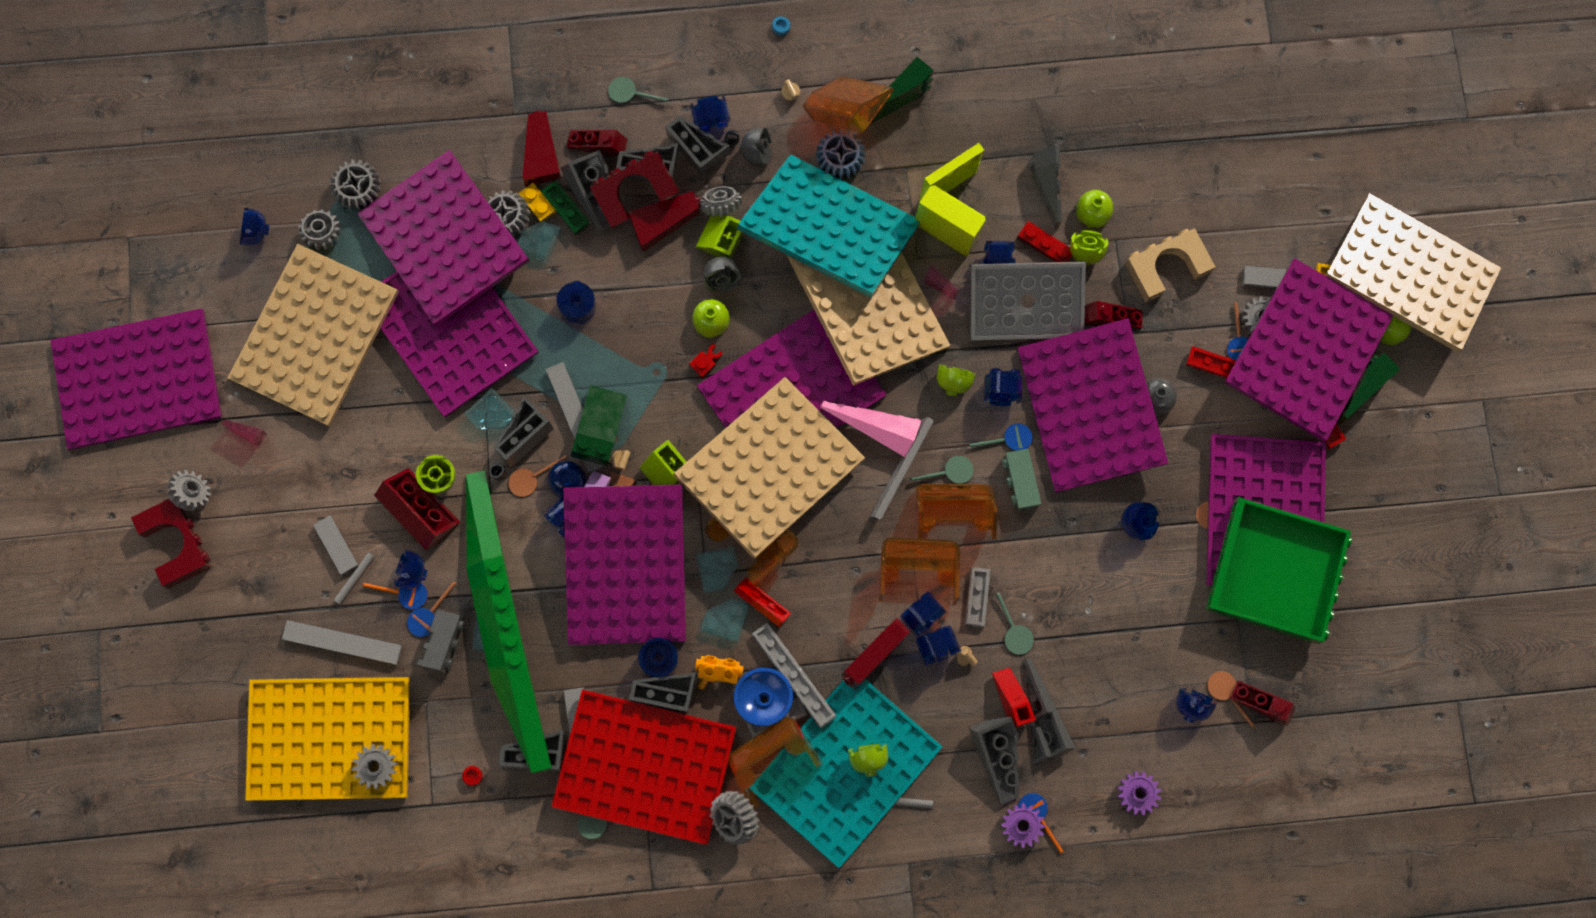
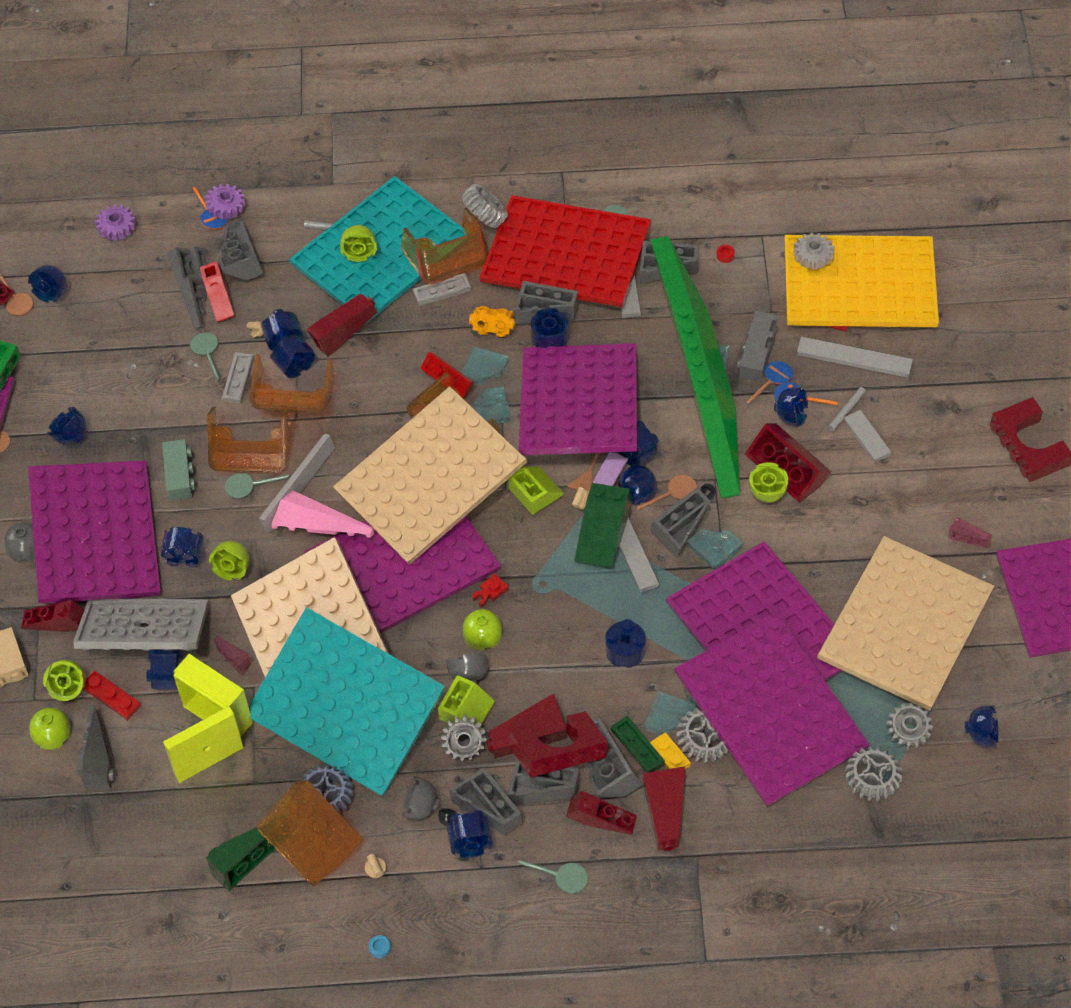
camera: 170 degrees left, 20 degrees down
(188, 490) = (1009, 477): light grey gear -> none
(760, 684) = (451, 287): blue dish -> none
(792, 671) = (422, 316): light grey tile -> none
(1016, 438) = (177, 512): blue piece -> none

